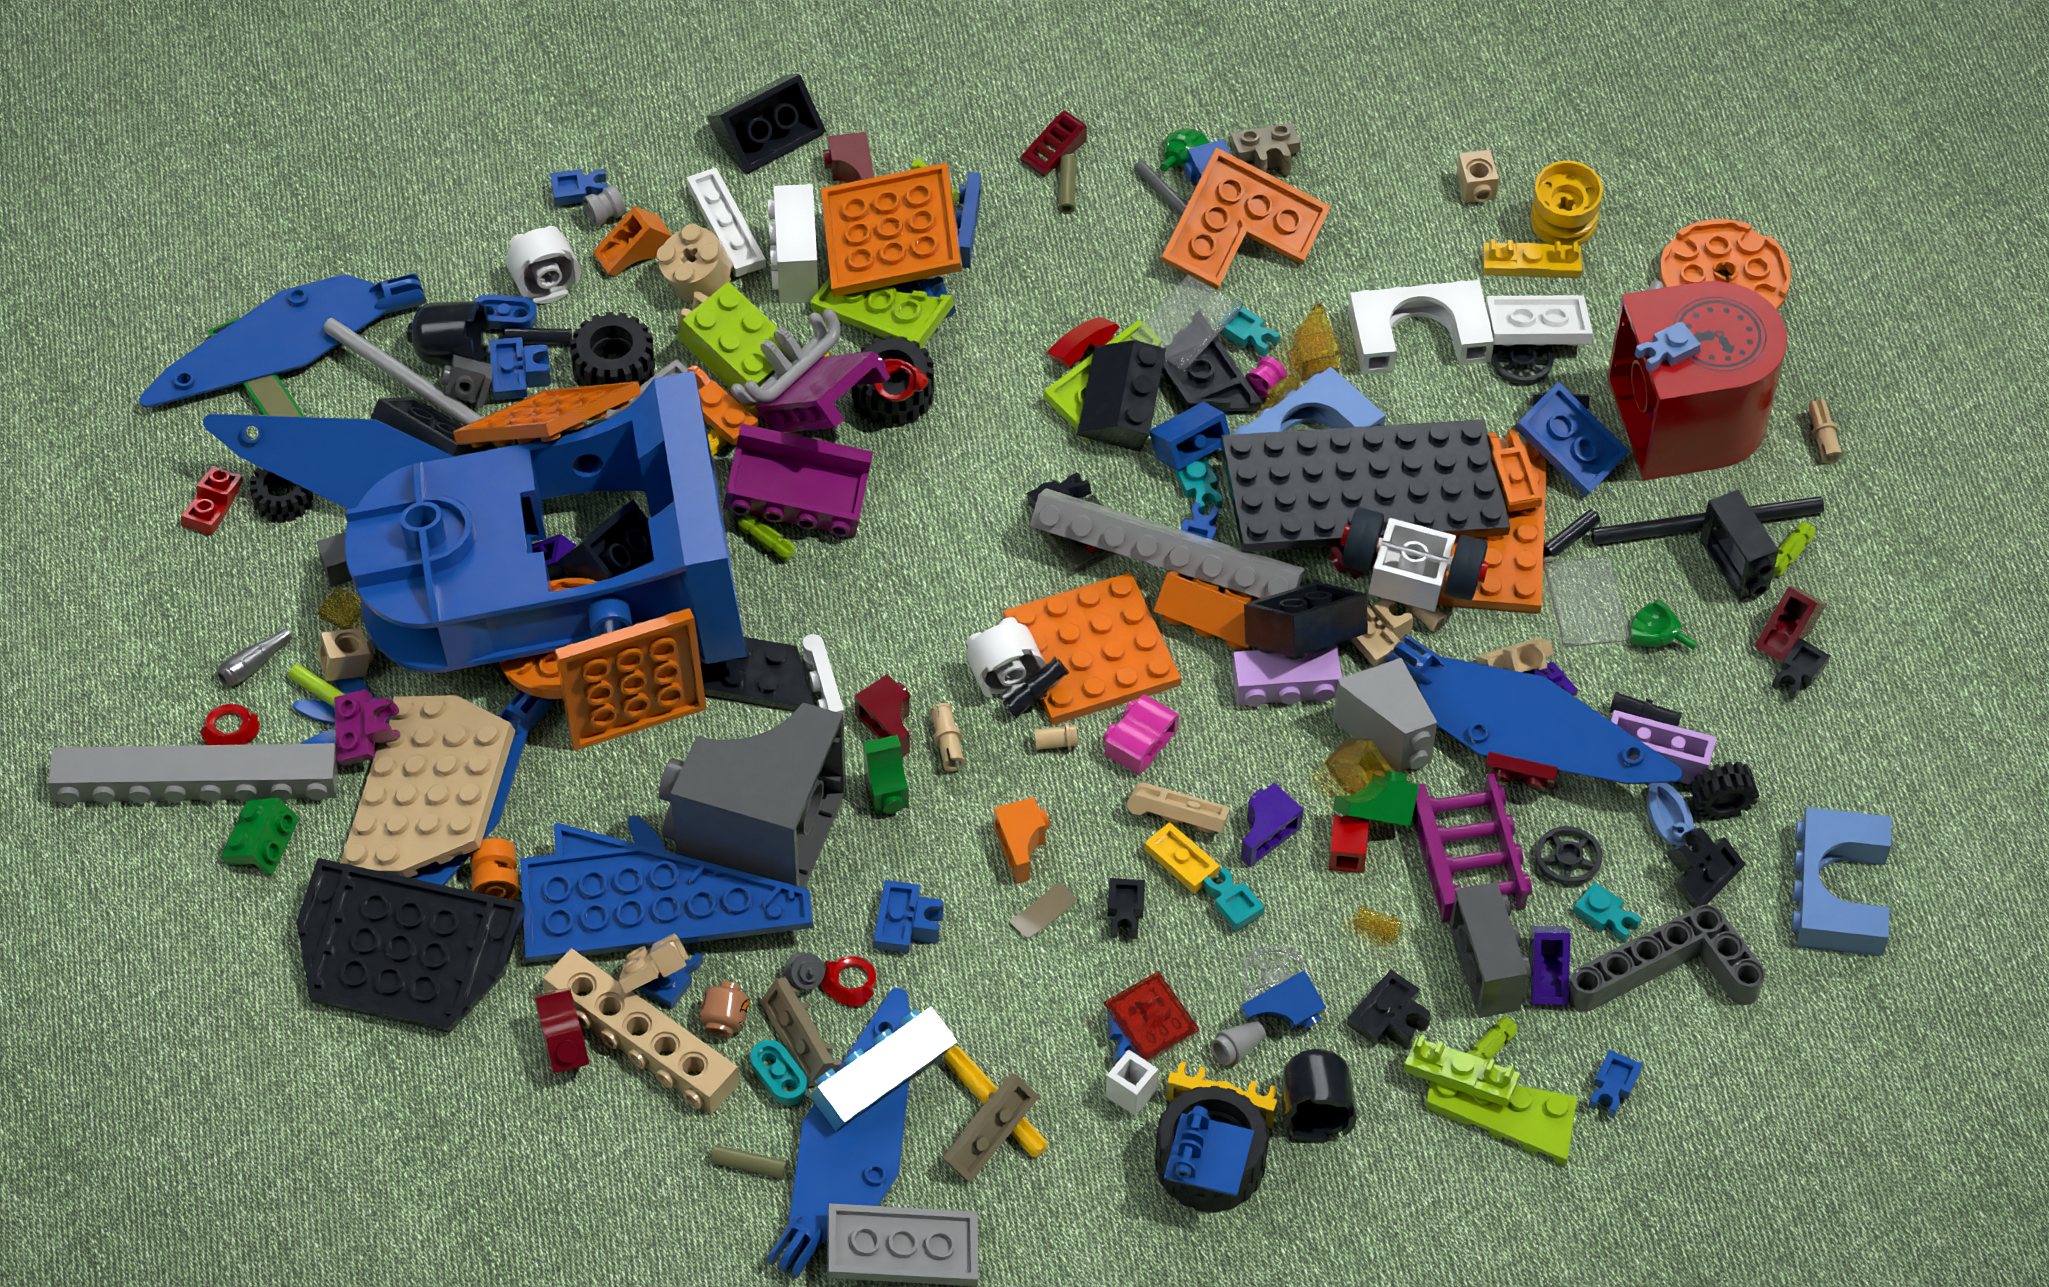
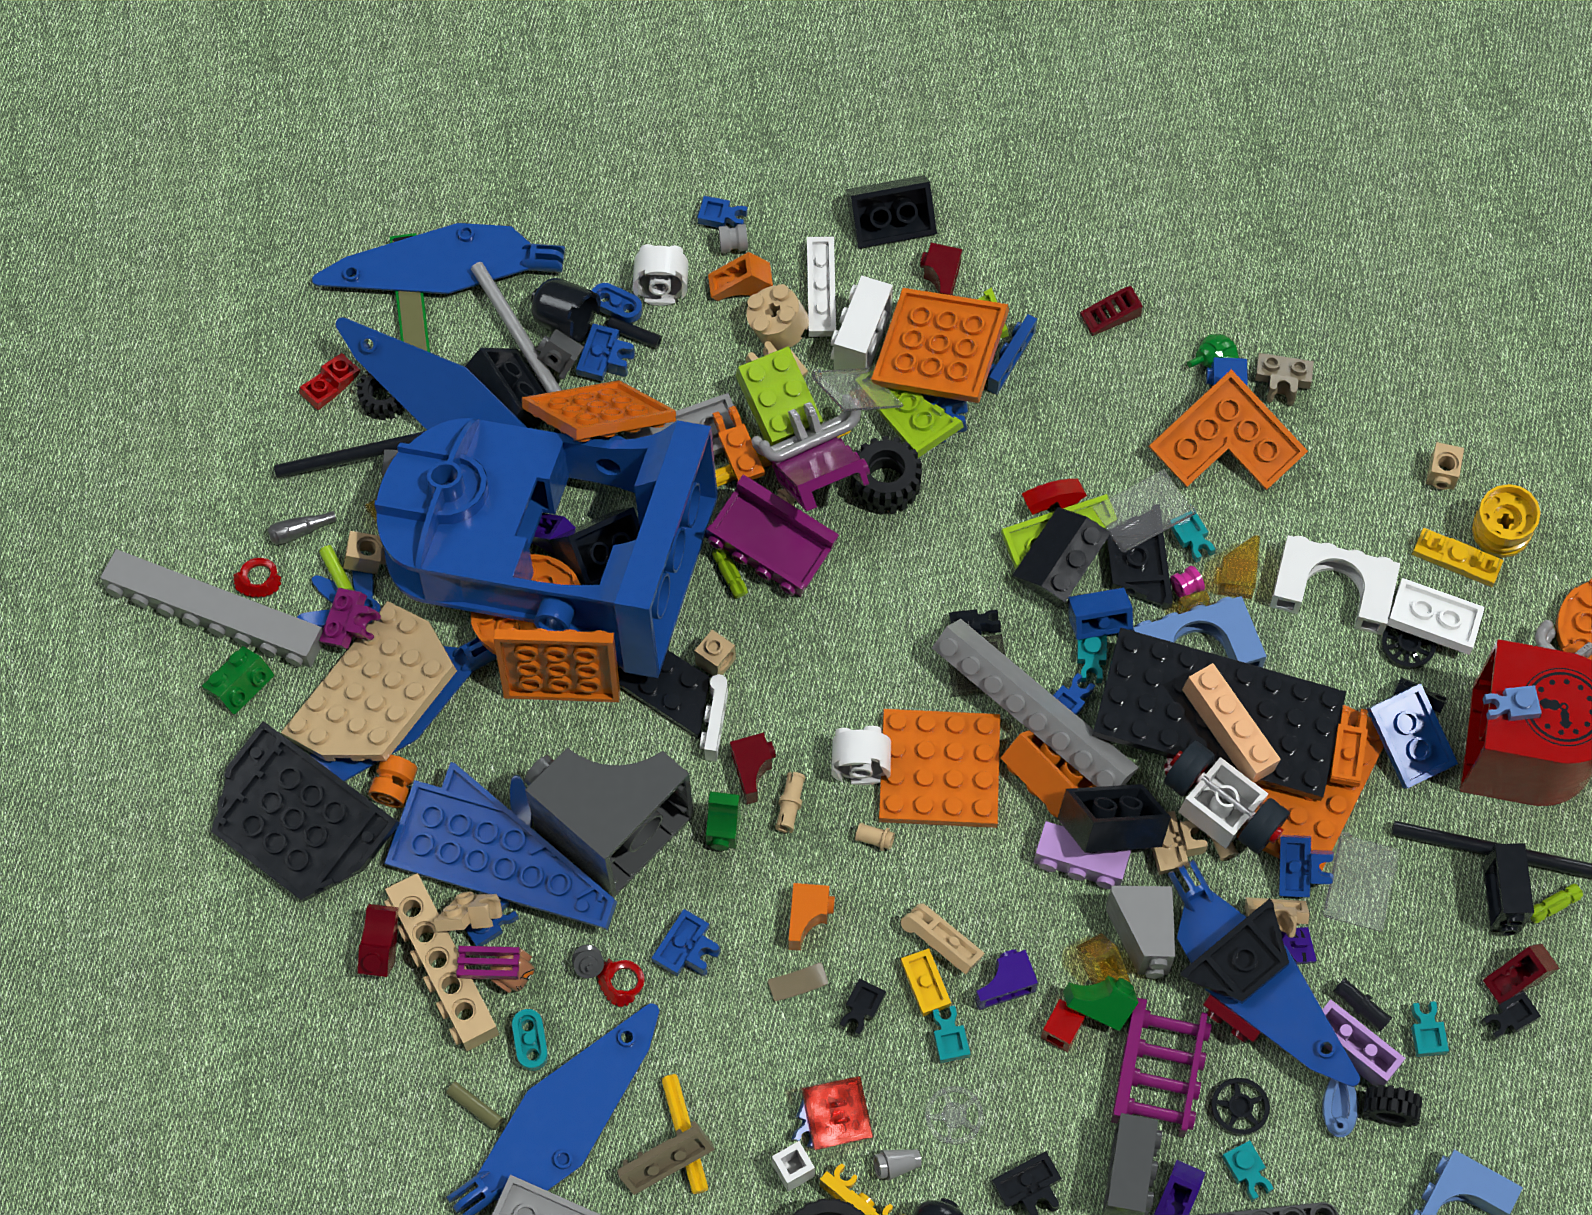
camera: 25 degrees right, 10 degrees up
(268, 567) = (341, 456): none -> black piece
(612, 336) = (679, 353): black tyre -> none
(696, 999) = (488, 951): none -> magenta tile
(792, 619) = (715, 654): none -> tan brick
(798, 1030) = (560, 1012): dark tan plate -> none
(820, 300) = (854, 389): none -> clear piece
(882, 1068) = (605, 1074): brick -> none
(917, 380) = (899, 487): red piece -> none
(1035, 687) = (876, 788): black pin -> none
(1067, 184) = (1106, 350): olive piece -> none
(1140, 734) = (942, 861): dark pink brick -> none
(1160, 187) = (1181, 379): dark grey bar -> none
(1291, 1001) = (951, 1146): blue arch -> none
(1378, 923) = (1056, 1104): clear yellow pin -> none
(1384, 481) = (1231, 723): none -> light nougat brick
(1505, 703) = (1242, 958): none -> black wing
(1519, 601) = (1301, 866): none -> blue plate
(1571, 533) = (1375, 818): black piece -> none
(1657, 626) = (1408, 931): green piece -> none
(1705, 865) = (1346, 1166): black plate -> none
(1725, 716) = (1428, 1035): none -> teal plate

